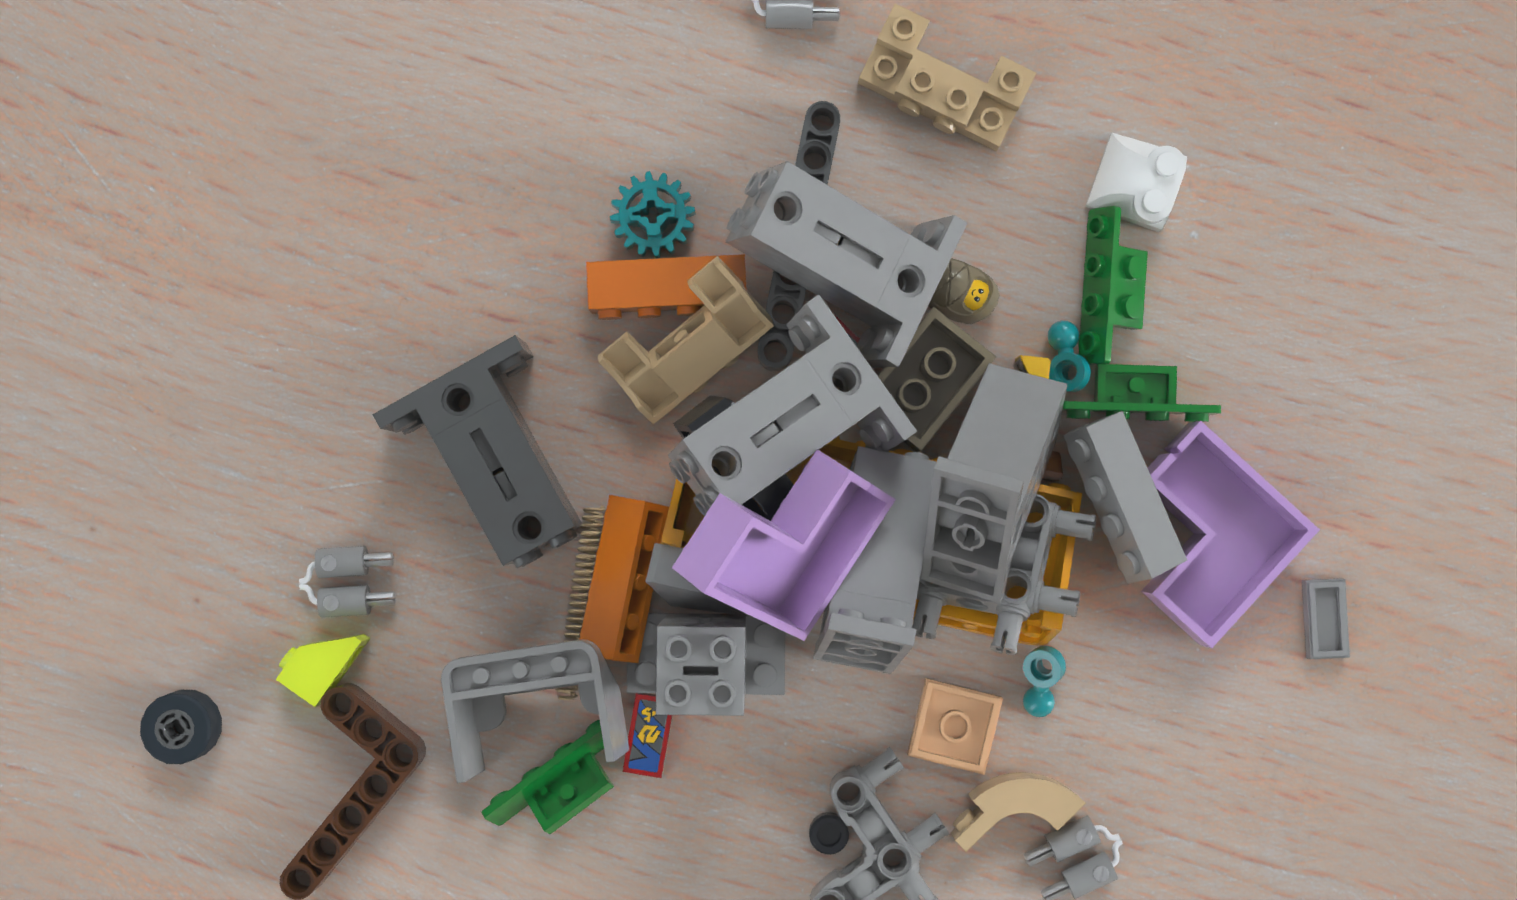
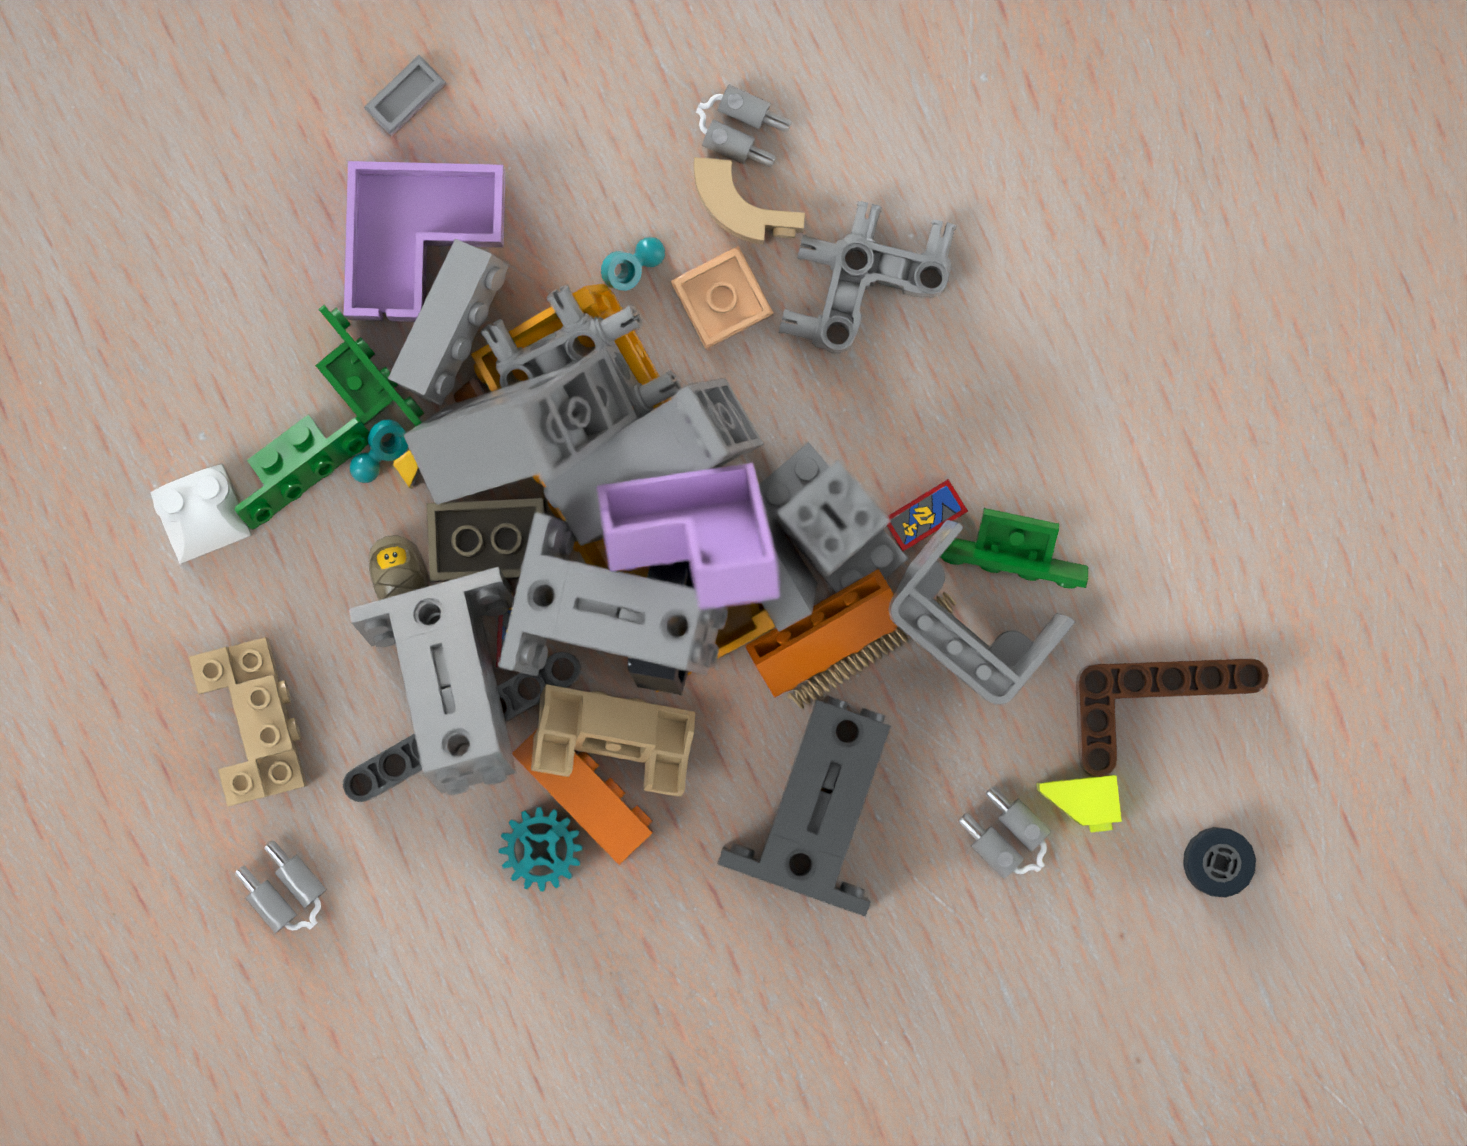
camera: 125 degrees left, 0 degrees up
(828, 833) = (881, 321): black tile -> none

